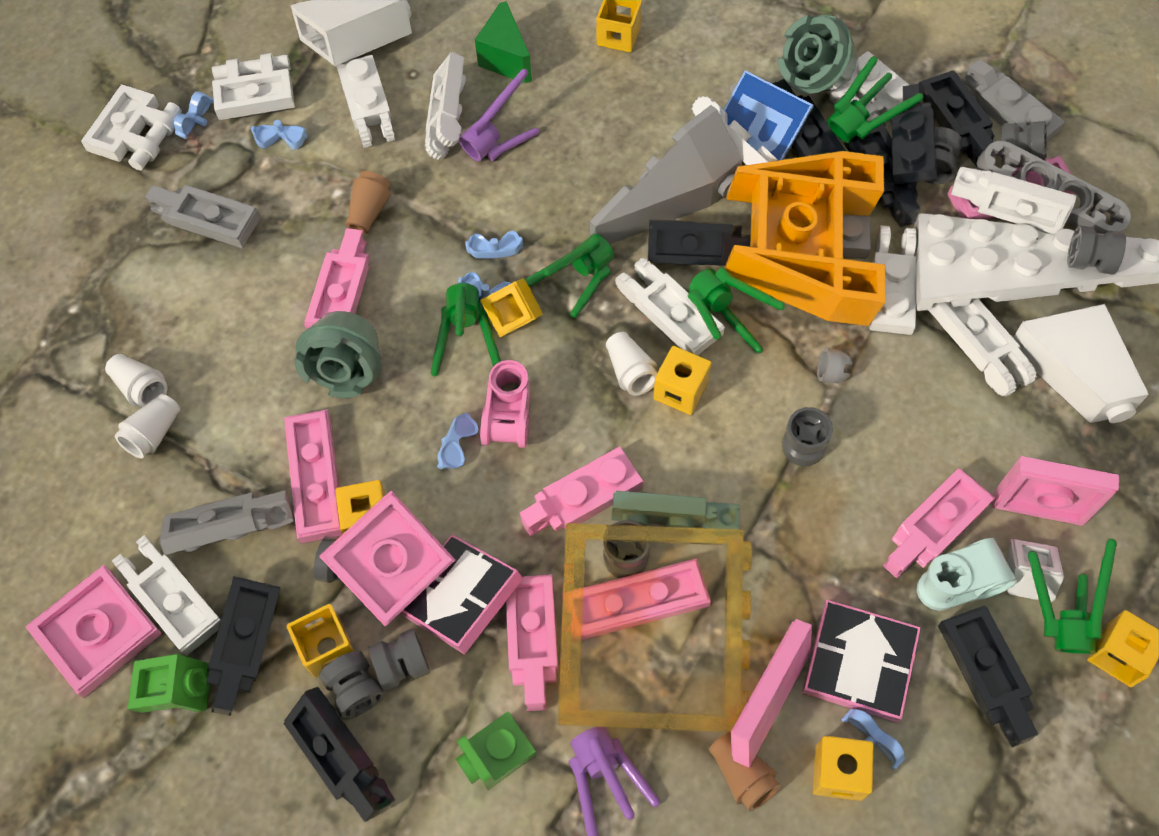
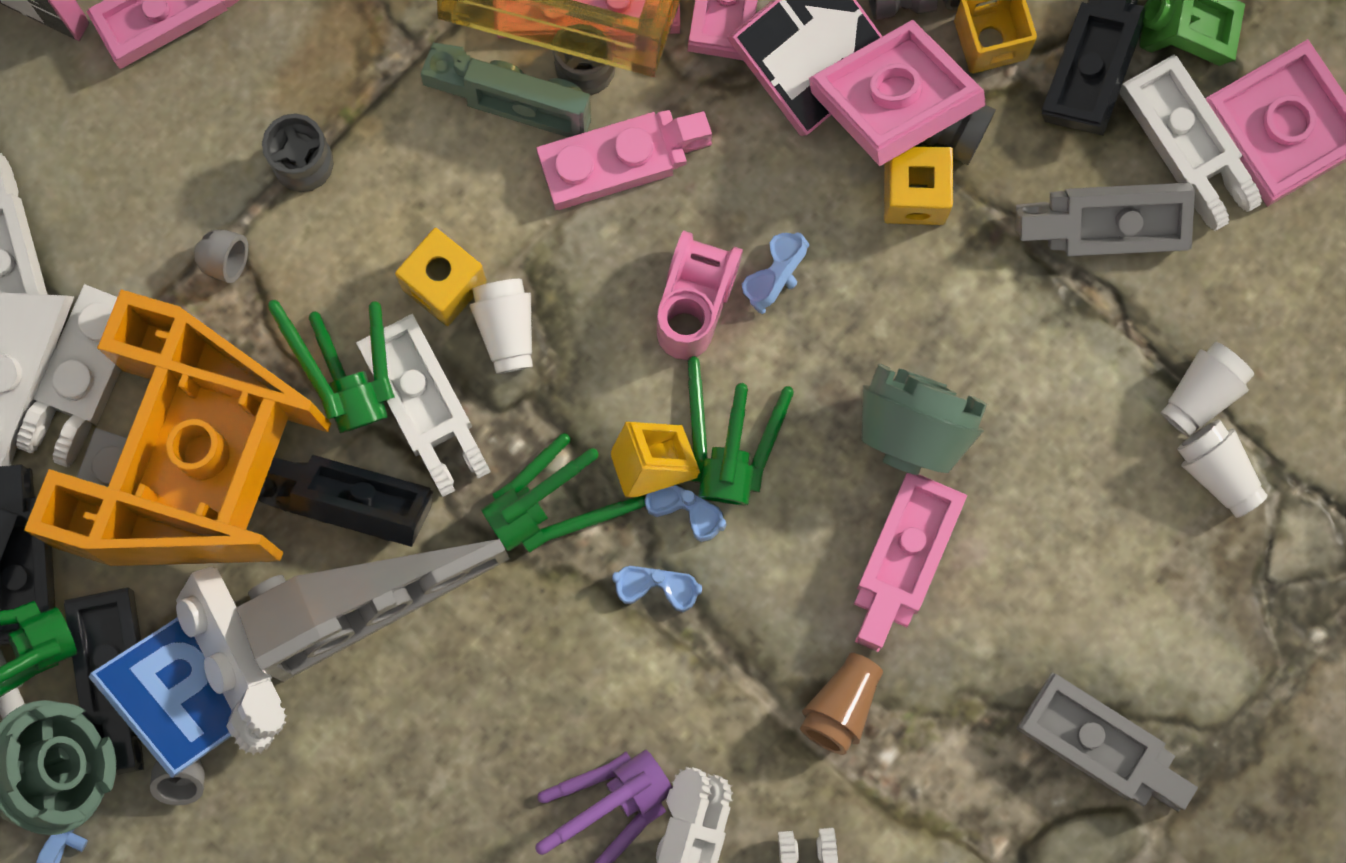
camera: 170 degrees left, 15 degrees up
(313, 475) = (980, 271): bright pink tile -> none

